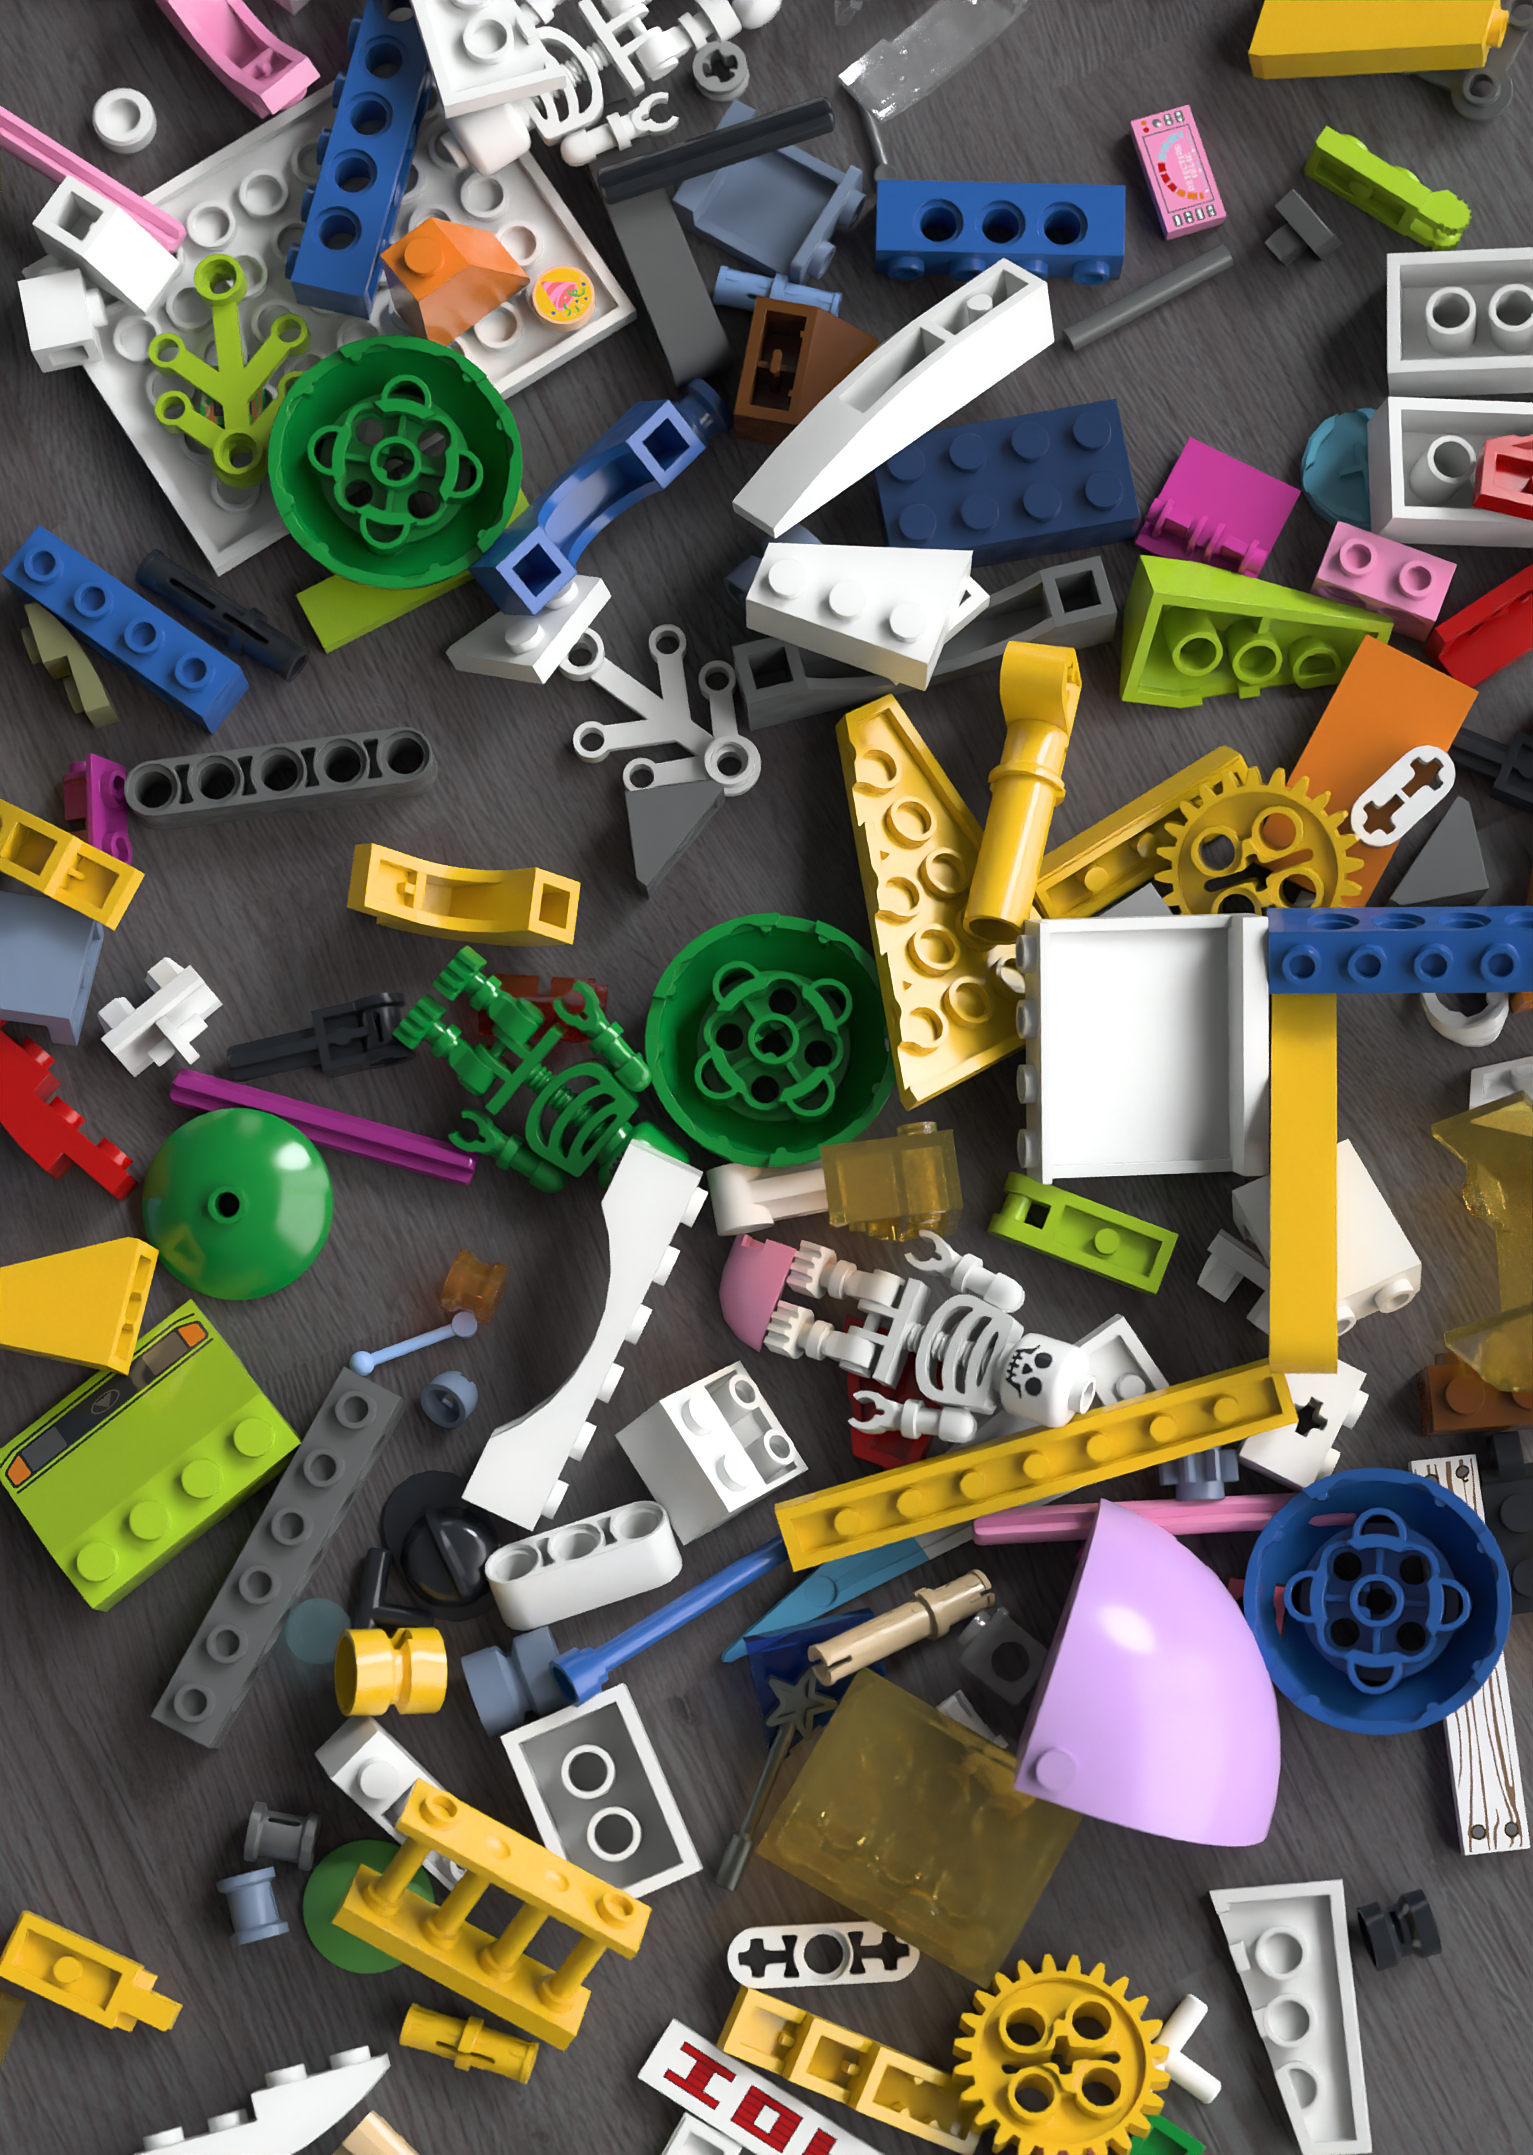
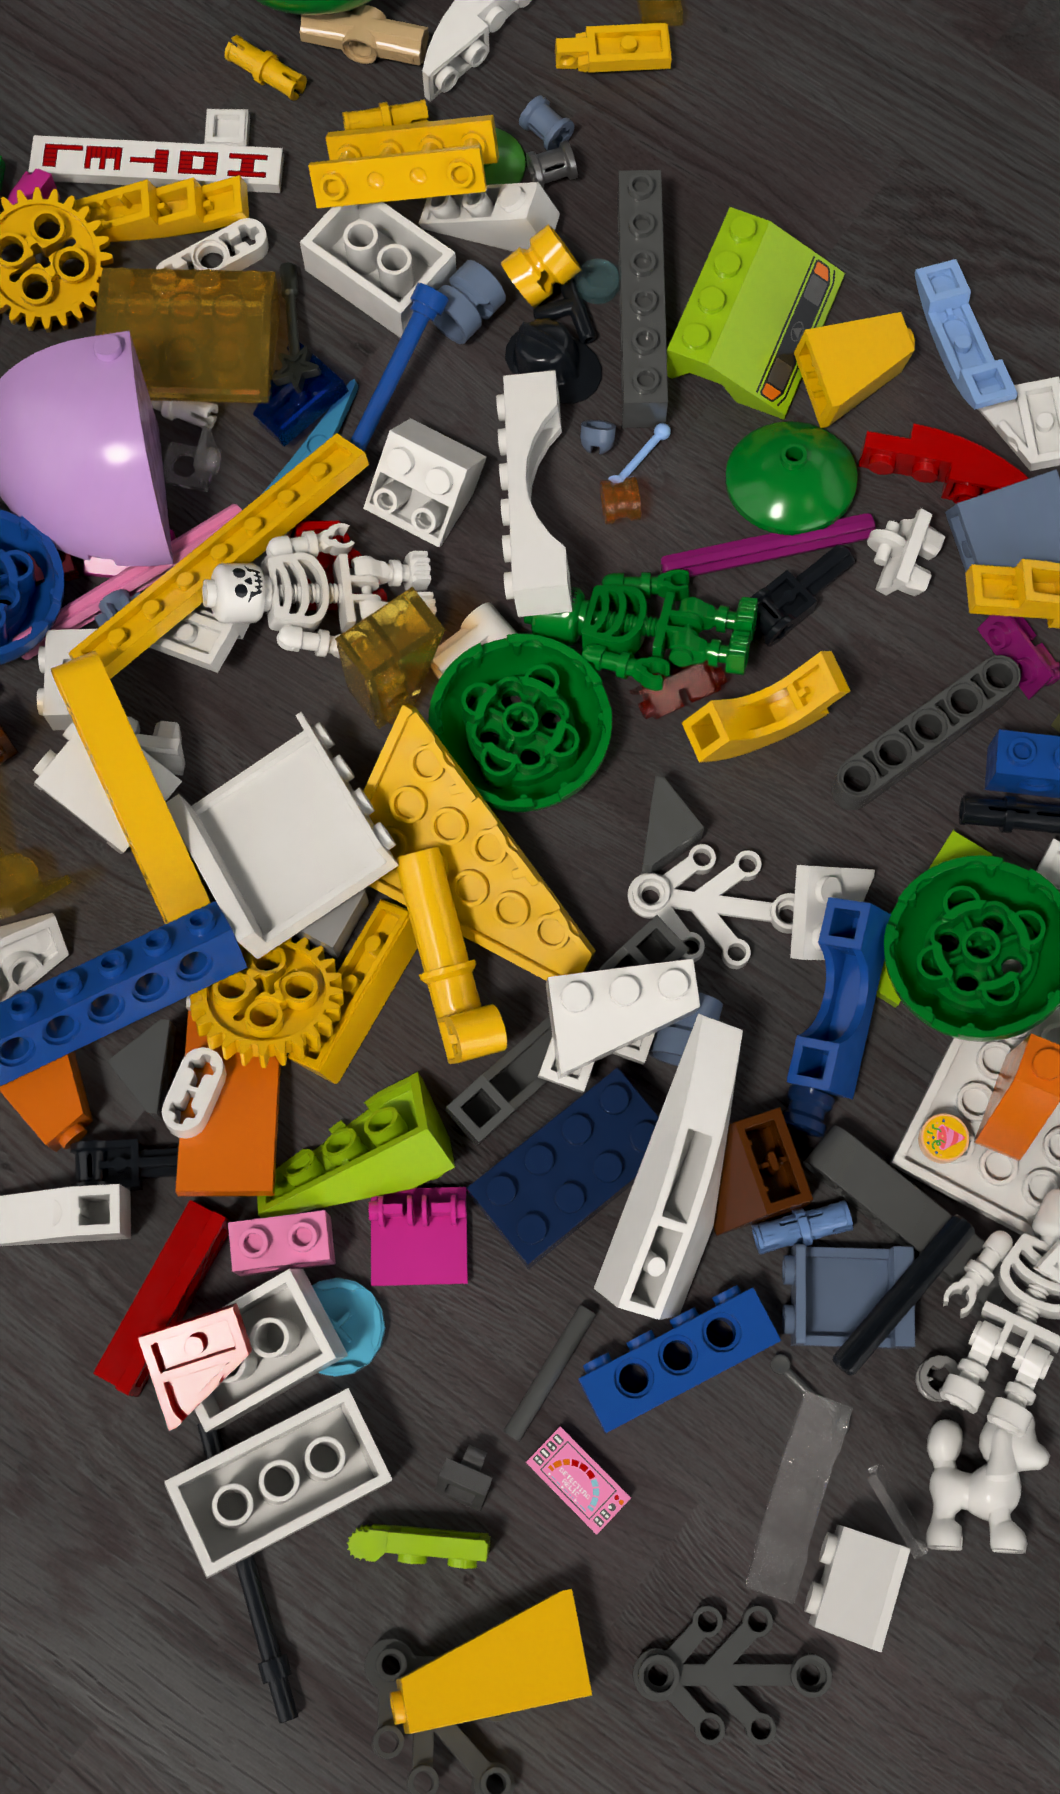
camera: 150 degrees right, 5 degrees down
(583, 1565) = (482, 376): white beam -> none
(753, 1286) = (453, 590): bright pink brick -> none
(924, 1616) = (256, 435): tan pin -> none
(1085, 1234) = (261, 720): lime plate -> none

